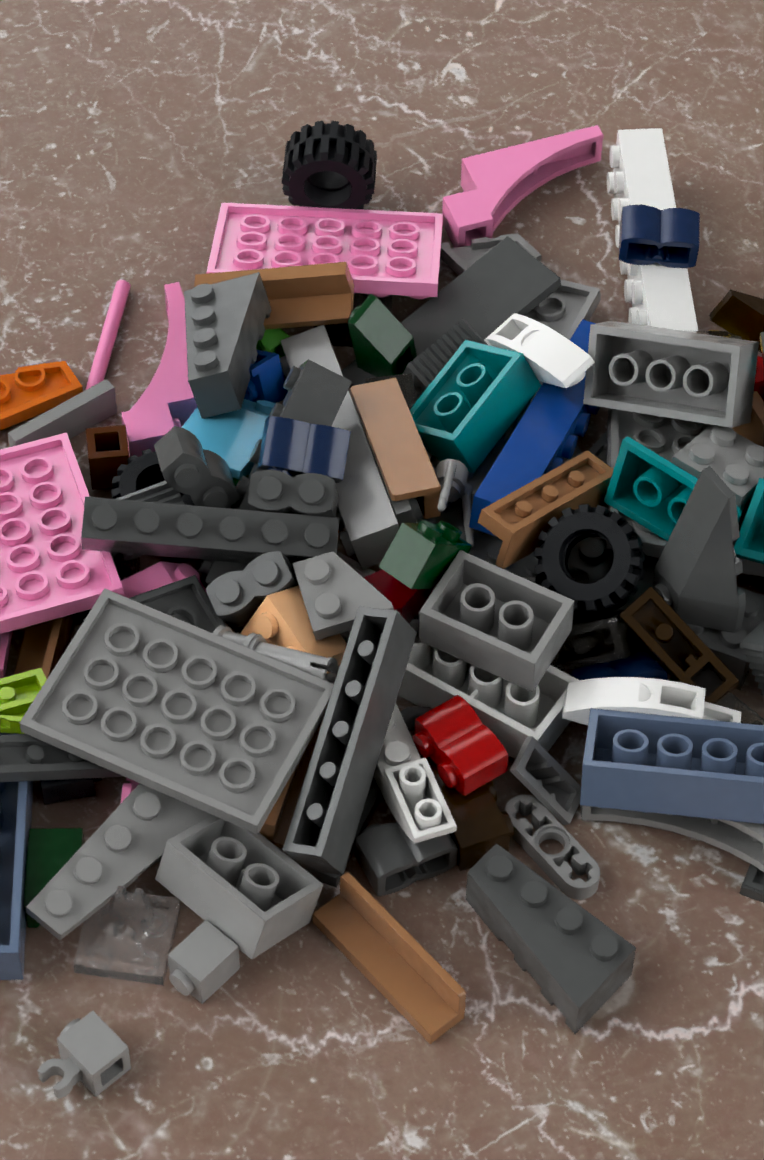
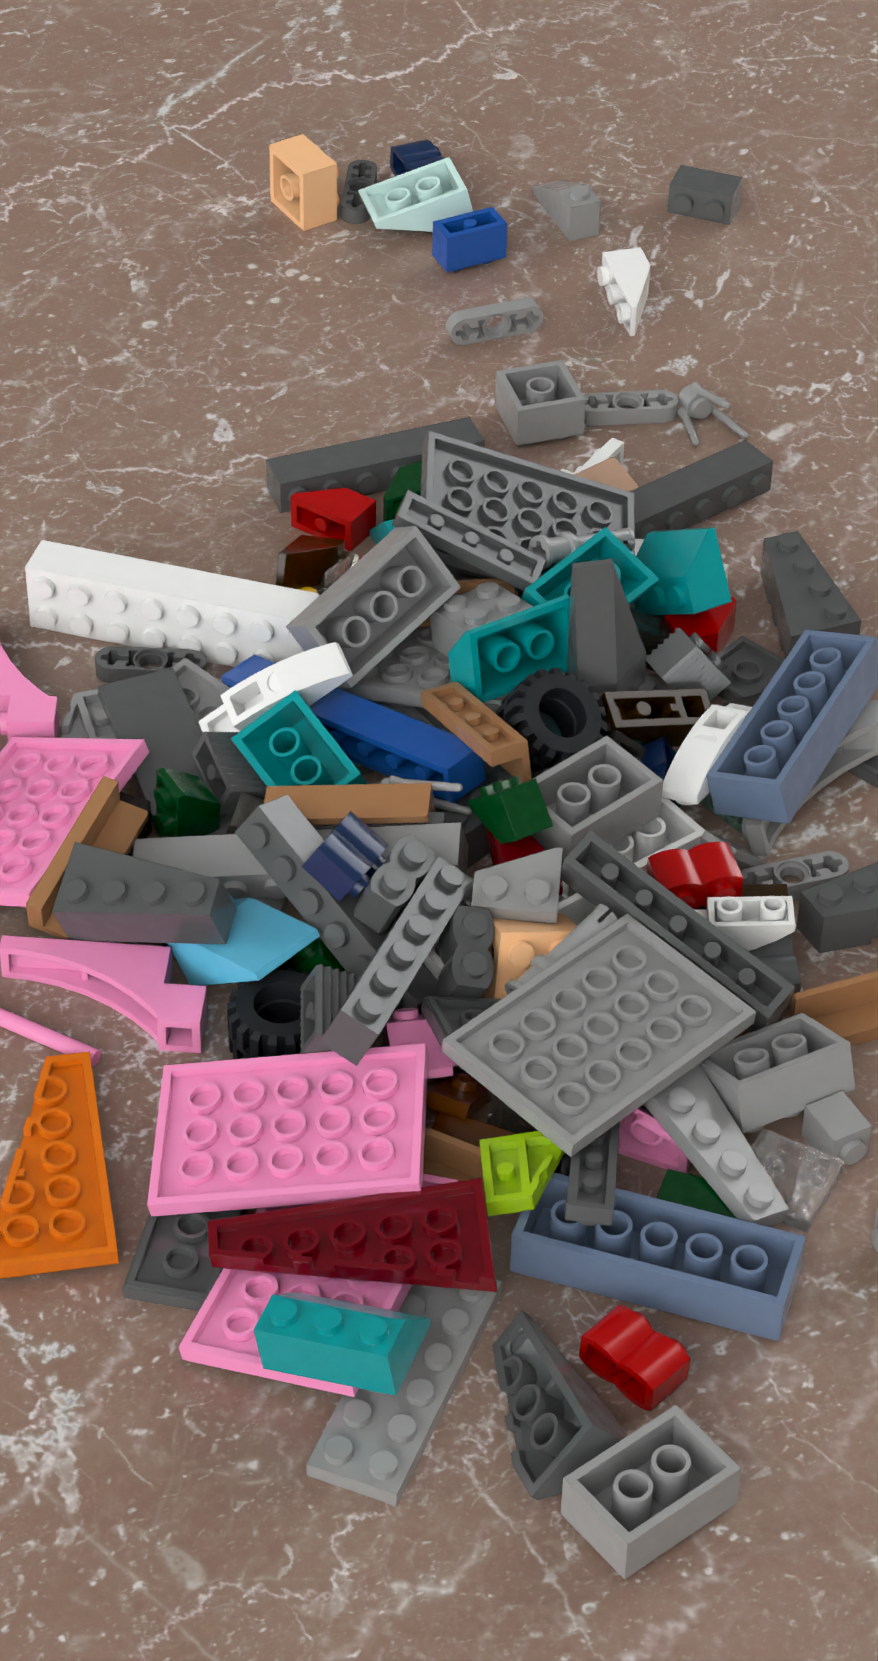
camera: 70 degrees left, 10 degrees down
(70, 416) = (128, 1080): light grey tile -> none
(106, 452) = (205, 1039): reddish brown brick -> none
(195, 470) = (323, 942): dark grey brick -> none
(598, 263) = (114, 661): none -> dark grey beam
(659, 236) = (192, 572): dark blue brick -> none

